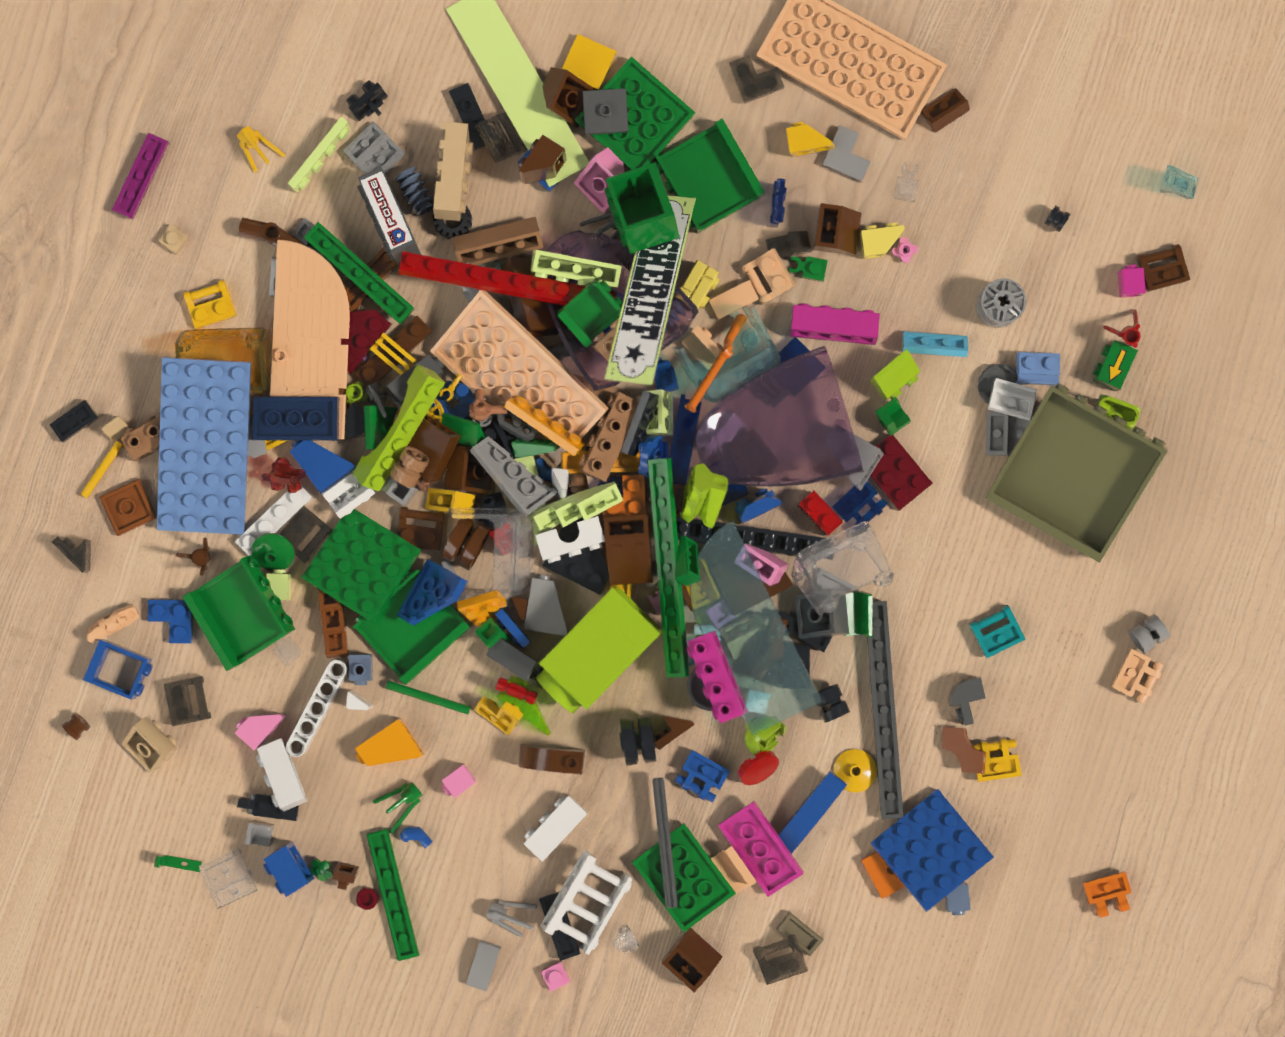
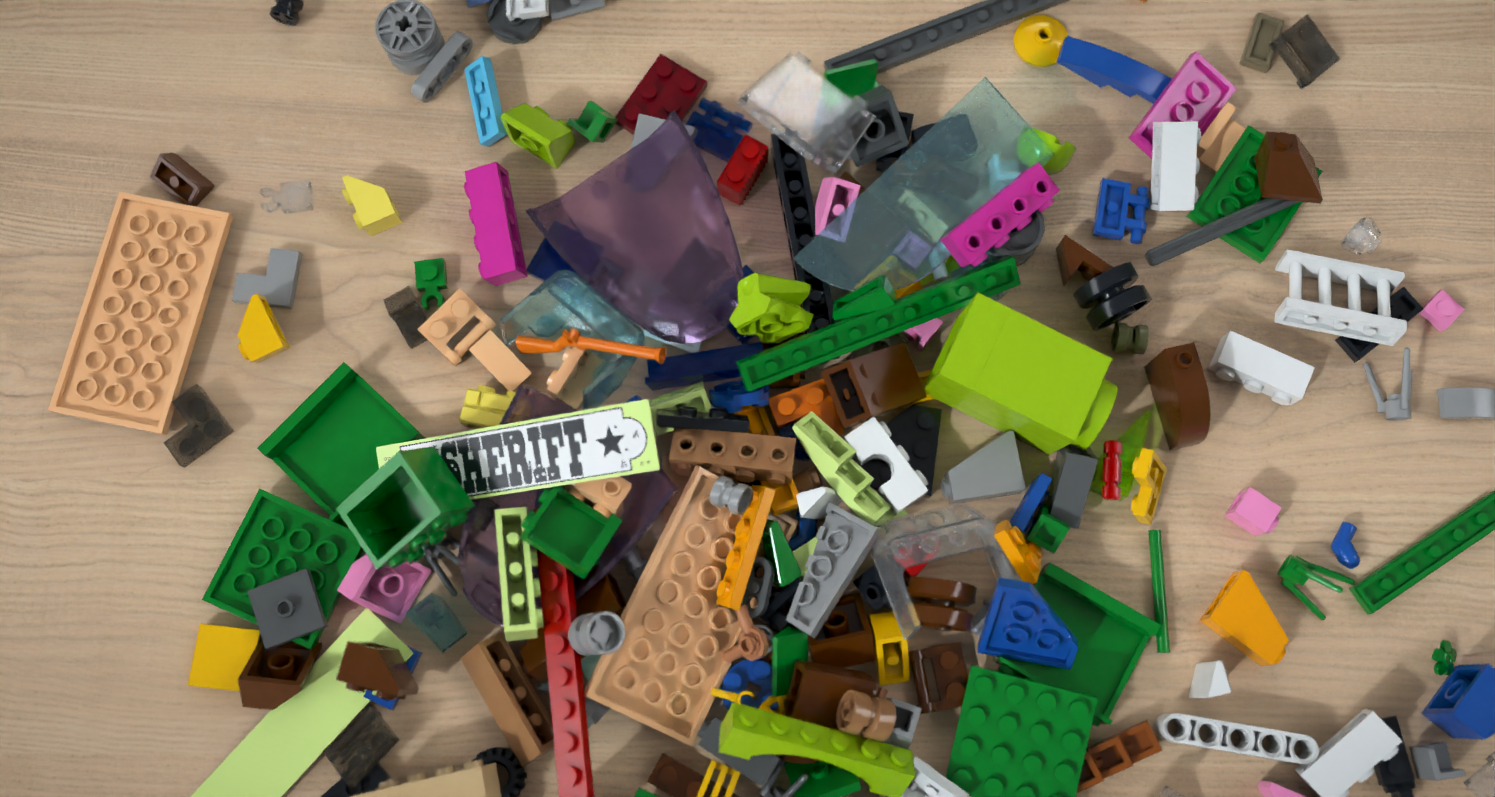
camera: 105 degrees left, 10 degrees down
(345, 874) = (1437, 623): reddish brown tile -> none
(366, 662) = (1148, 698): sand blue brick -> none
(367, 898) = (1452, 584): dark red tile -> none
(516, 308) = (596, 633): none -> light grey wheel
(521, 605) = (993, 504): reddish brown slope -> none
(565, 208) = (437, 621): none -> clear light blue slope
(581, 422) = (730, 495): none -> light grey wheel
(609, 740) = (1129, 338): none -> olive wheel
(688, 901) = (1287, 169): none -> reddish brown slope
(691, 959) = (1354, 150): reddish brown slope -> none
(719, 823) = (1174, 165): none -> white brick
(758, 768) = (1087, 143): red tile -> none
(764, 502) = (761, 245): blue slope -> none
(778, 197) = (354, 343): clear blue plate -> none
(831, 703) = (970, 78): black wheel -> none
(837, 229) = (370, 262): reddish brown slope -> none
(904, 256) = (381, 178): bright pink plate -> none
(973, 320) = (442, 67): none -> light grey beam

